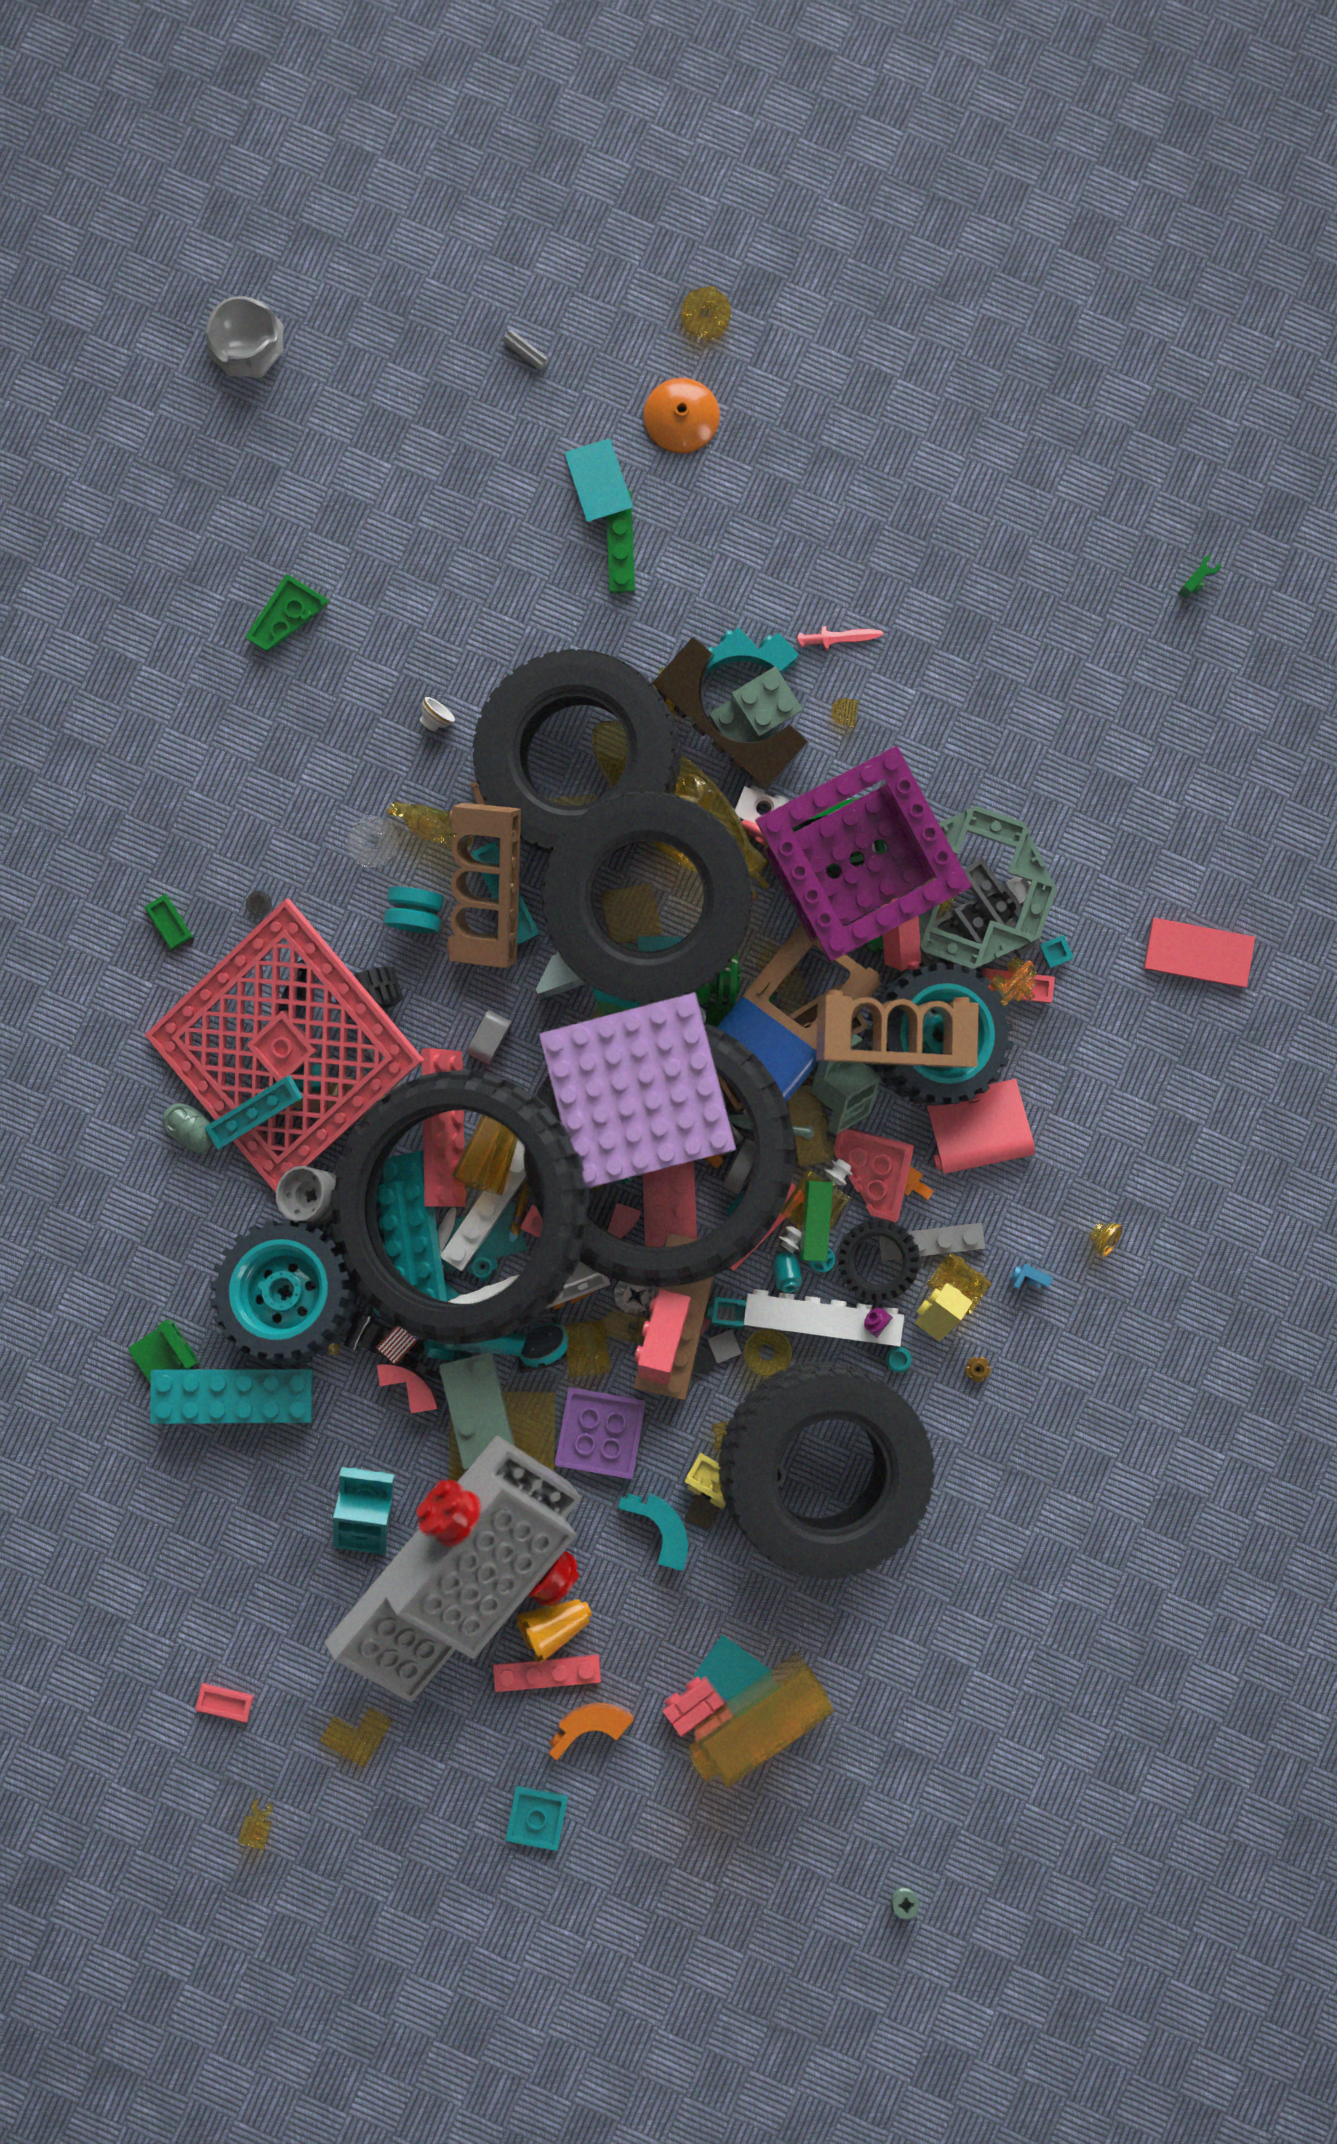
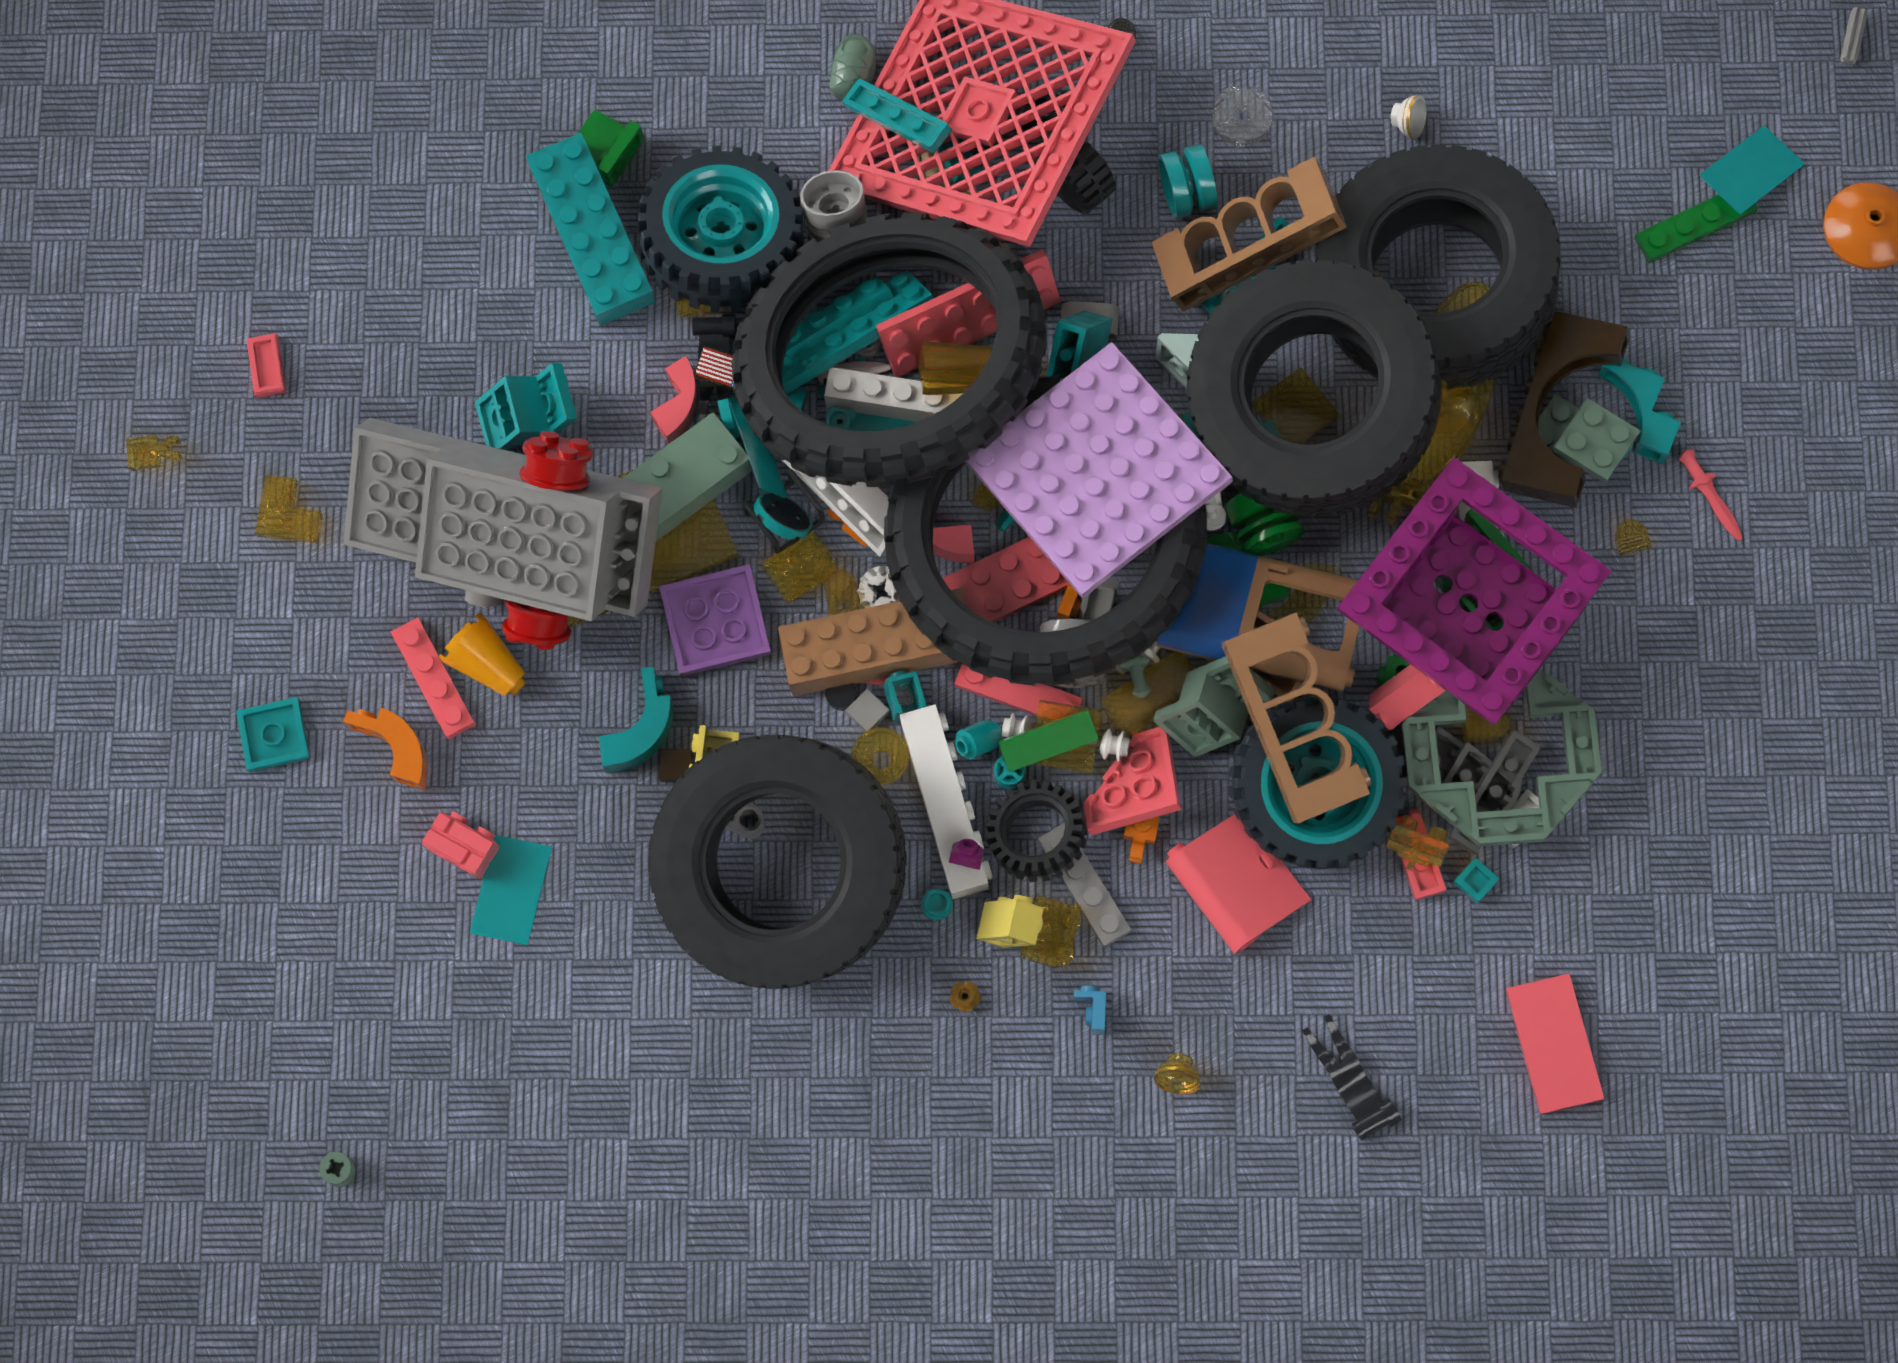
camera: 75 degrees right, 10 degrees down
(426, 822) = (1287, 153): clear yellow animal -> none
(517, 1057) = (1077, 341): none -> teal brick
(662, 1336) = (845, 622): coral wedge -> none
(760, 1721) = (473, 908): clear yellow brick -> none
(1167, 1112) = (1354, 1085): none -> black flag

